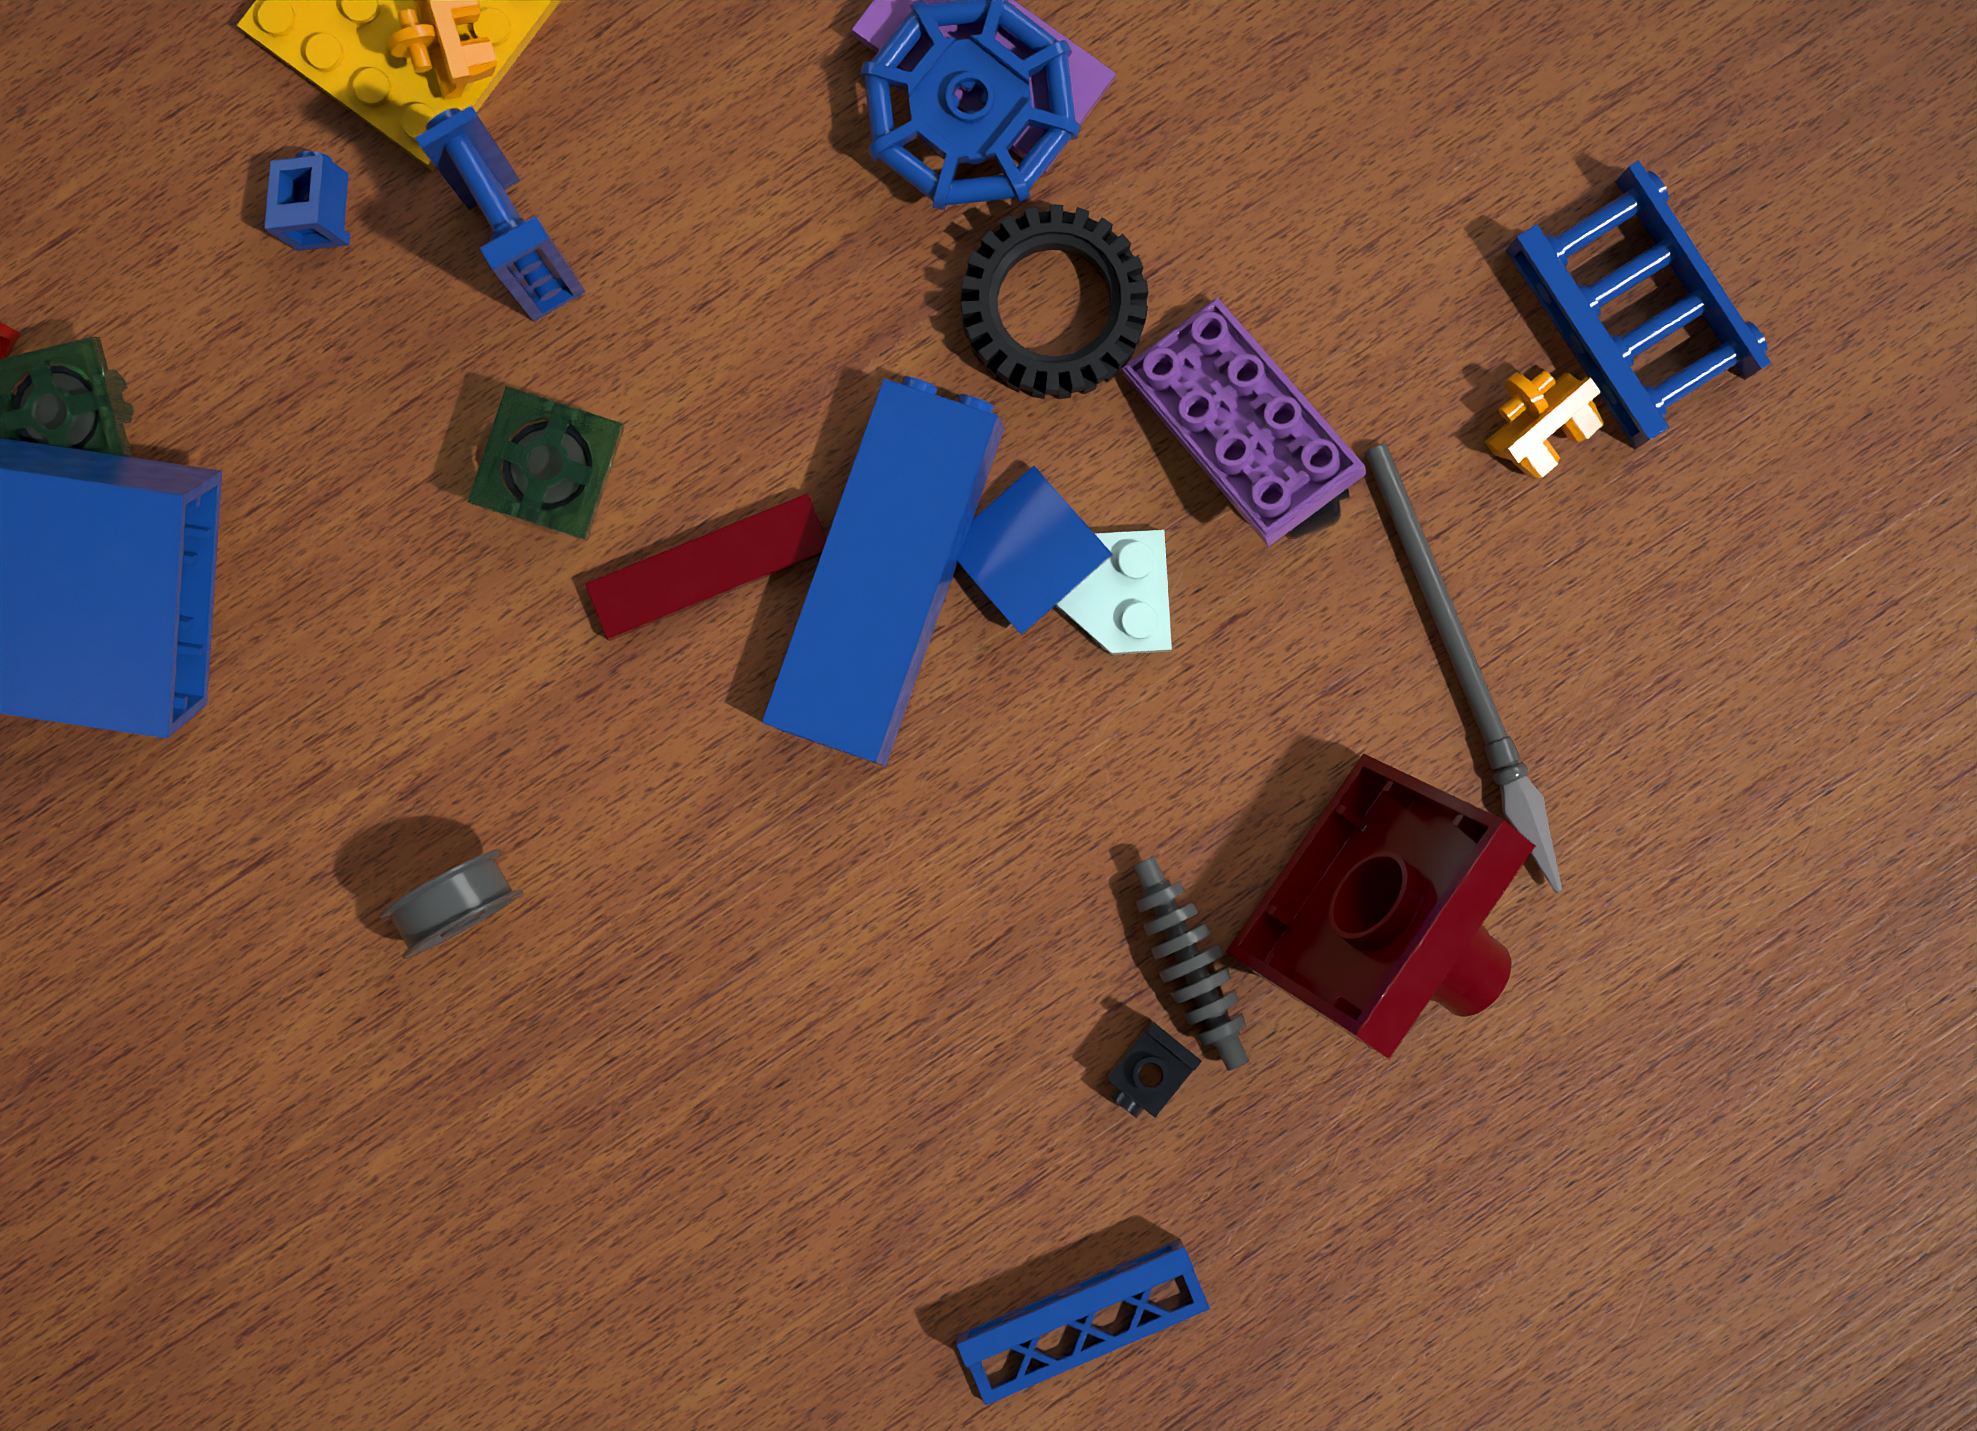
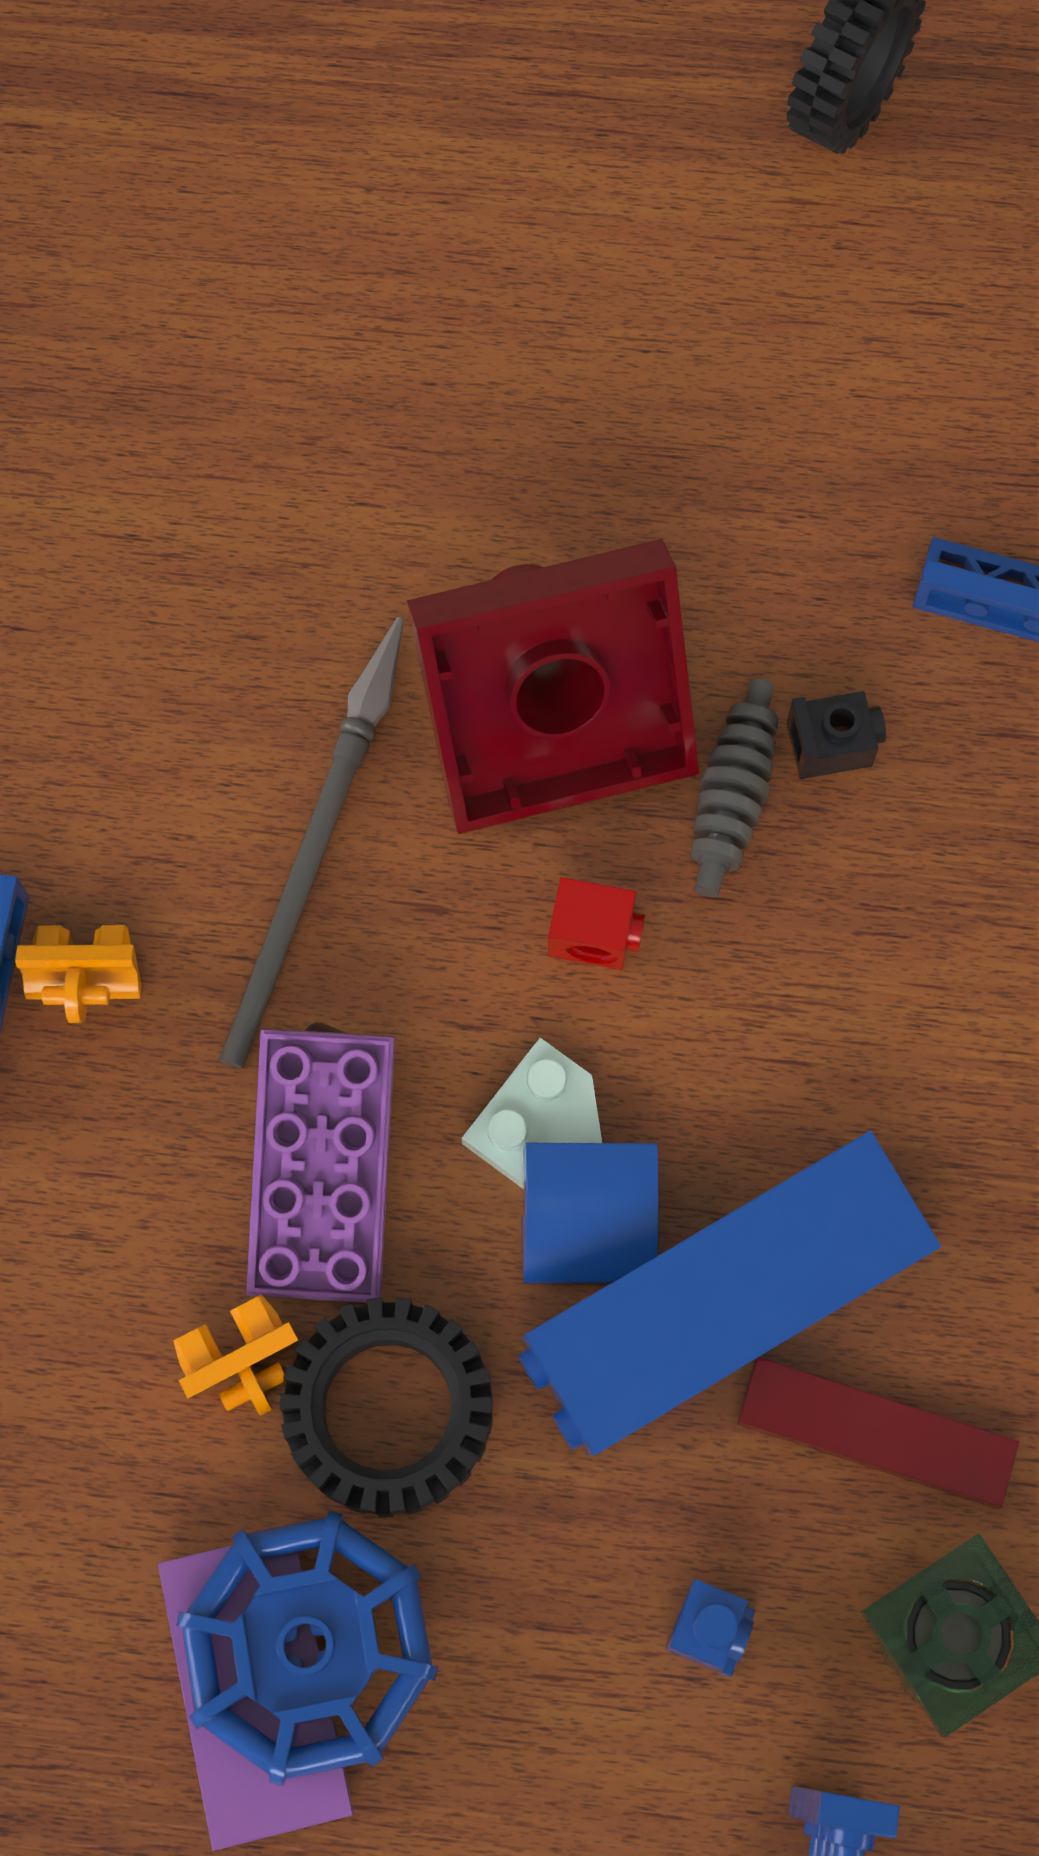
camera: 135 degrees left, 15 degrees down
(715, 338) = (712, 1628): none -> blue brick
(1177, 273) = (207, 1366): none -> light orange hips
(1203, 766) = (594, 924): none -> red brick

